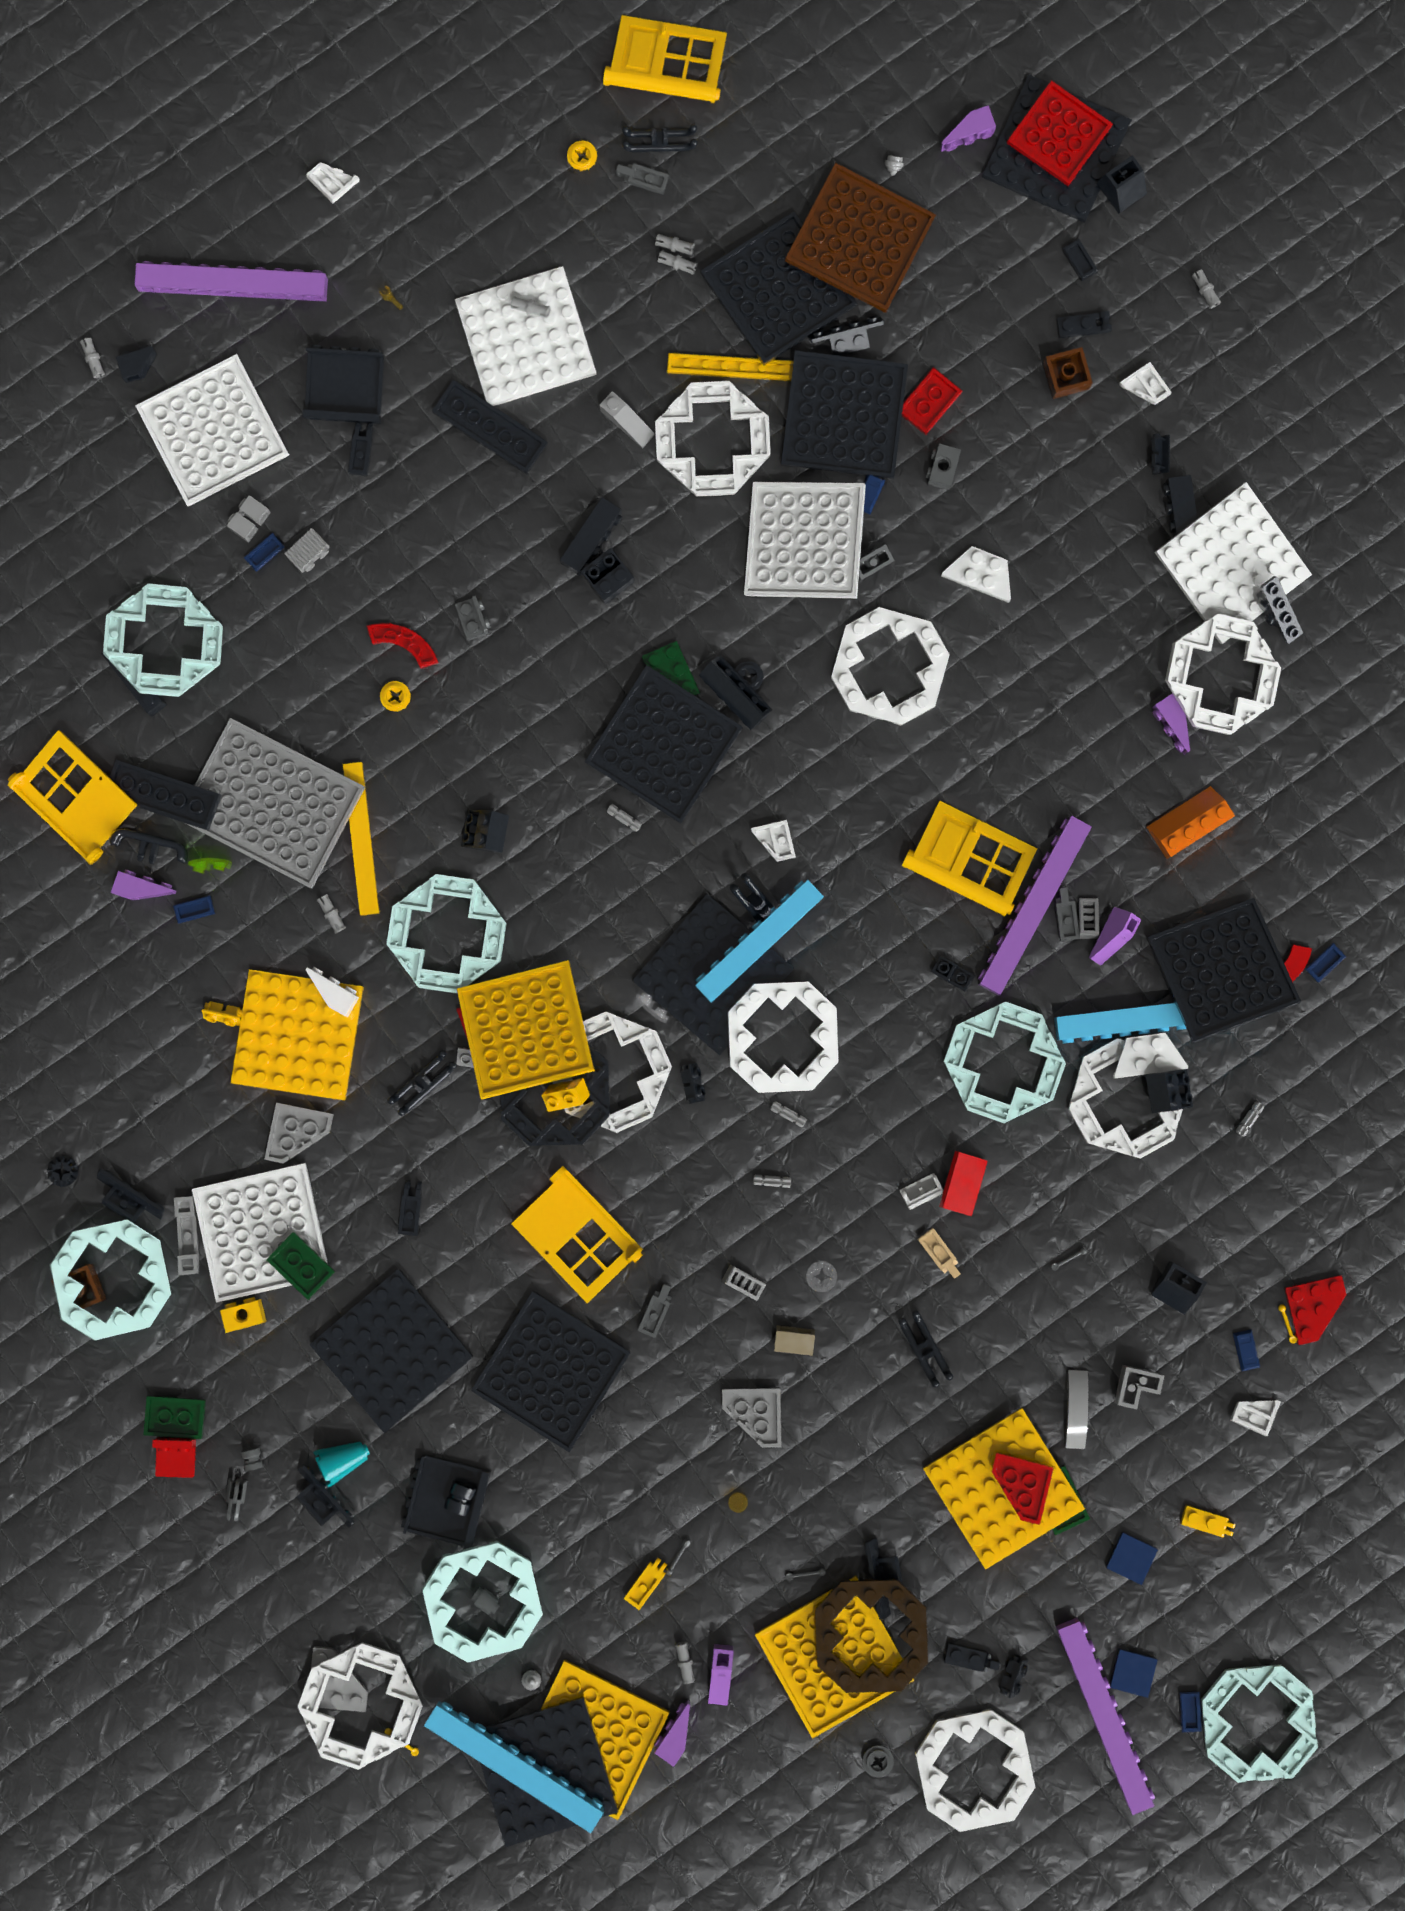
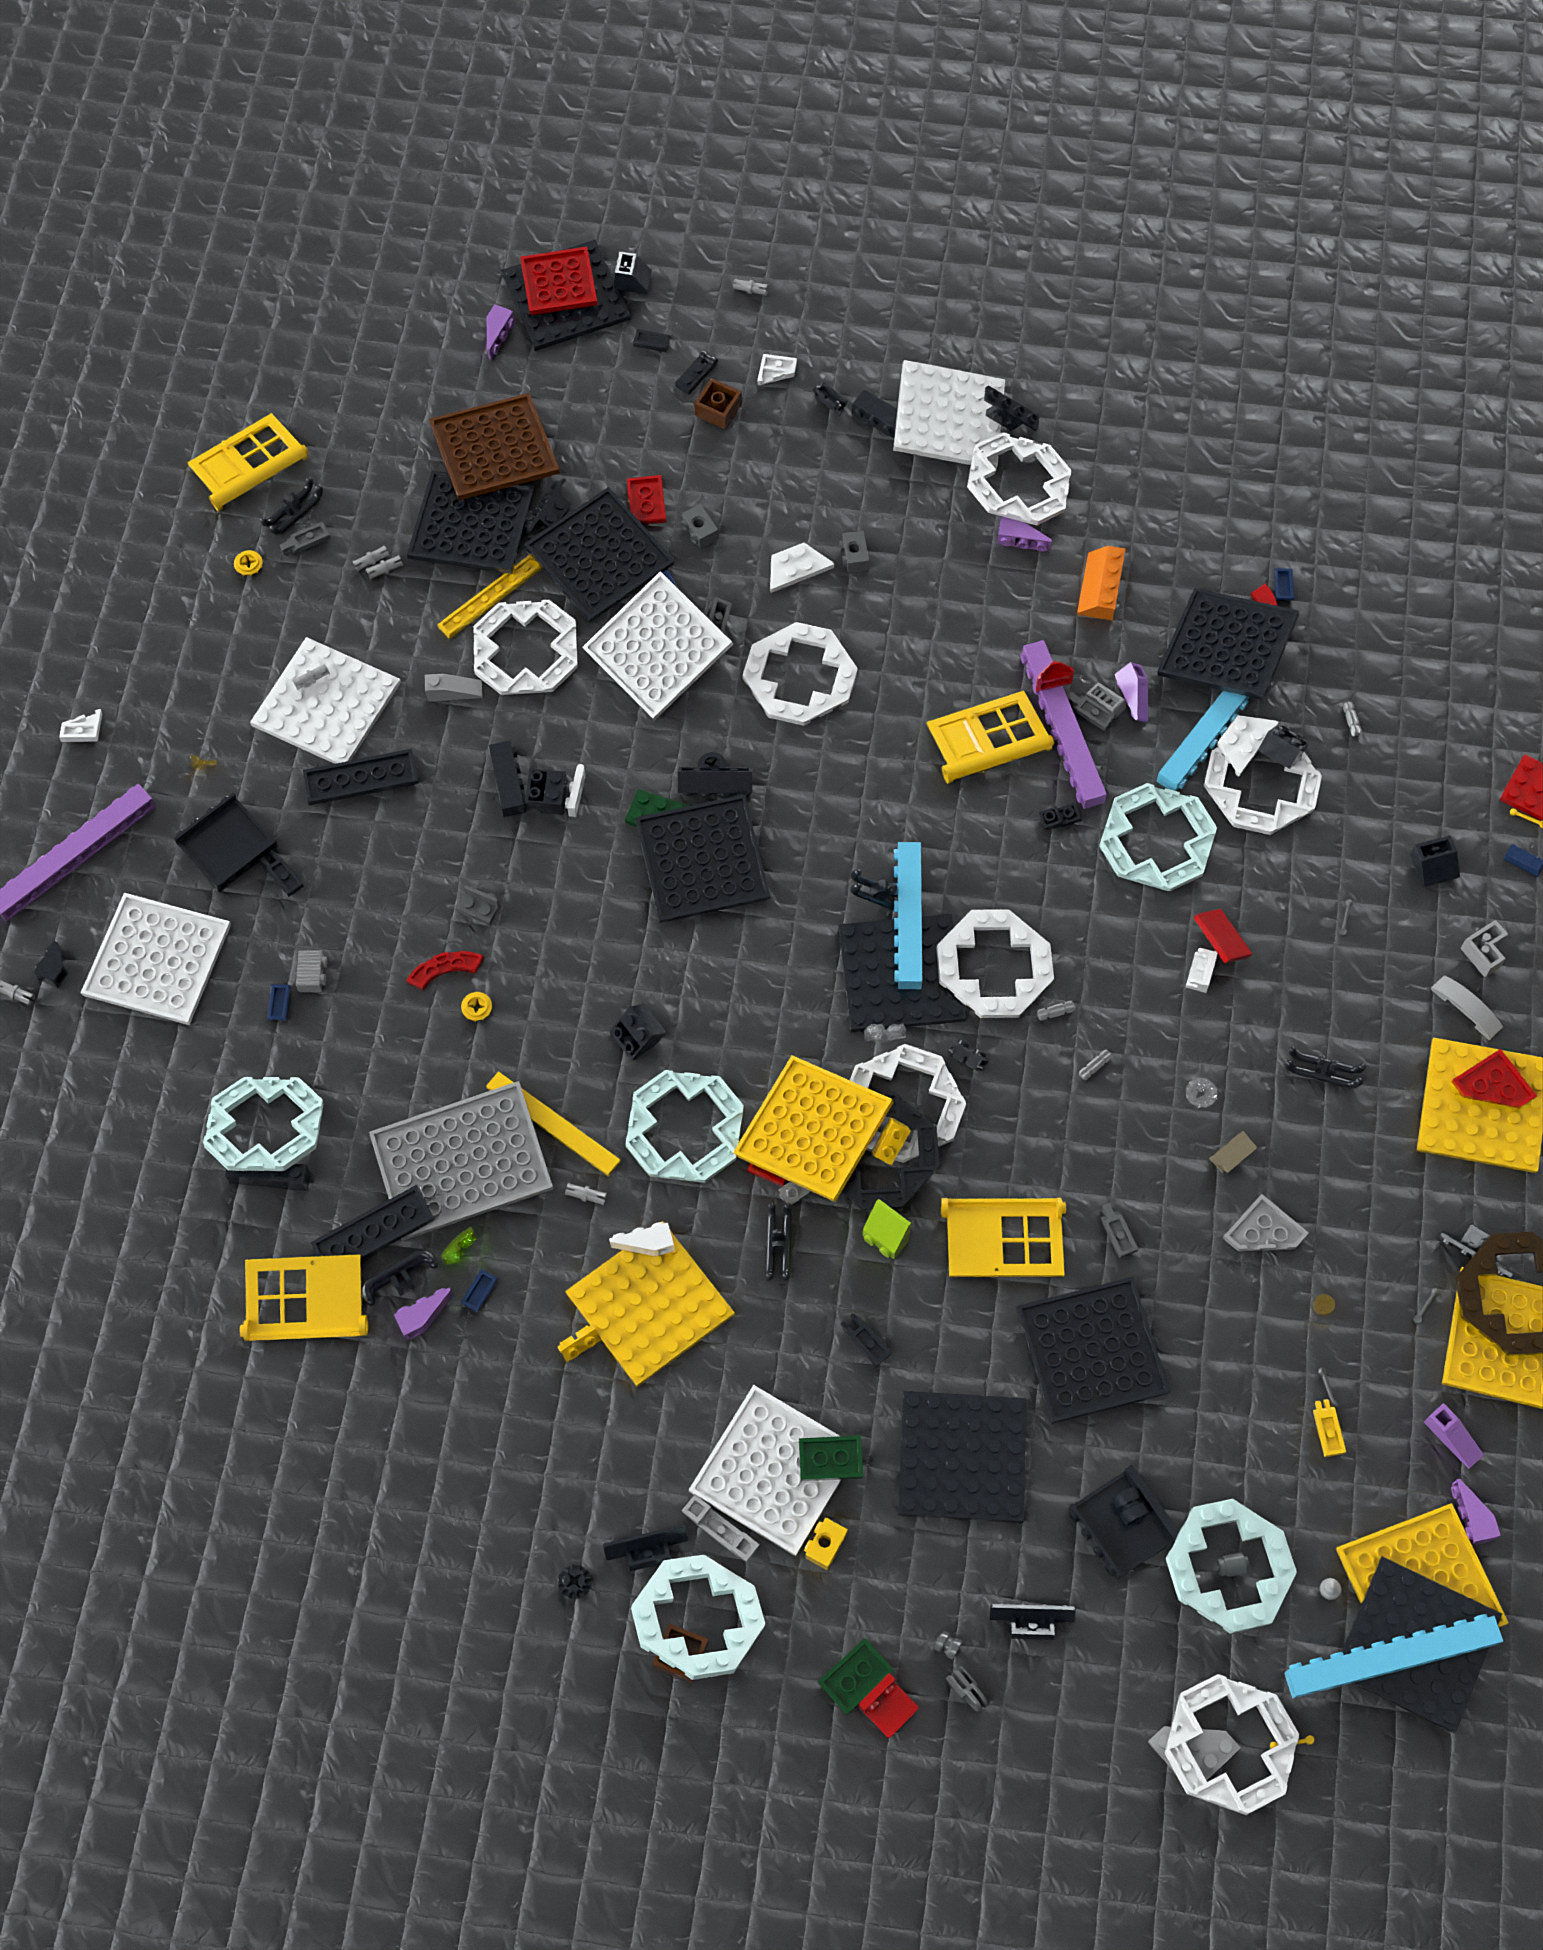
camera: 45 degrees left, 20 degrees down
(254, 511) = (243, 986): light grey piece -> none
(294, 1131) = (721, 1370): light grey plate -> none
(340, 1460) = (1013, 1576): teal cone -> none
(498, 1152) = (886, 1230): none -> lime slope
(624, 817) = (727, 931): light grey axle -> none
(632, 595) = (575, 789): none -> white hinge
(685, 1662) = (1420, 1456): light grey pin -> none
(730, 1273) = (1142, 1156): light grey slope -> none
(776, 840) = (846, 846): white wing -> none
(894, 164) = (468, 390): light grey plate -> none
(939, 1252) = (1260, 997): tan hinge -> none
(1032, 618) = (854, 542): none -> dark grey brick
(1061, 866) = (1054, 675): none -> red slope

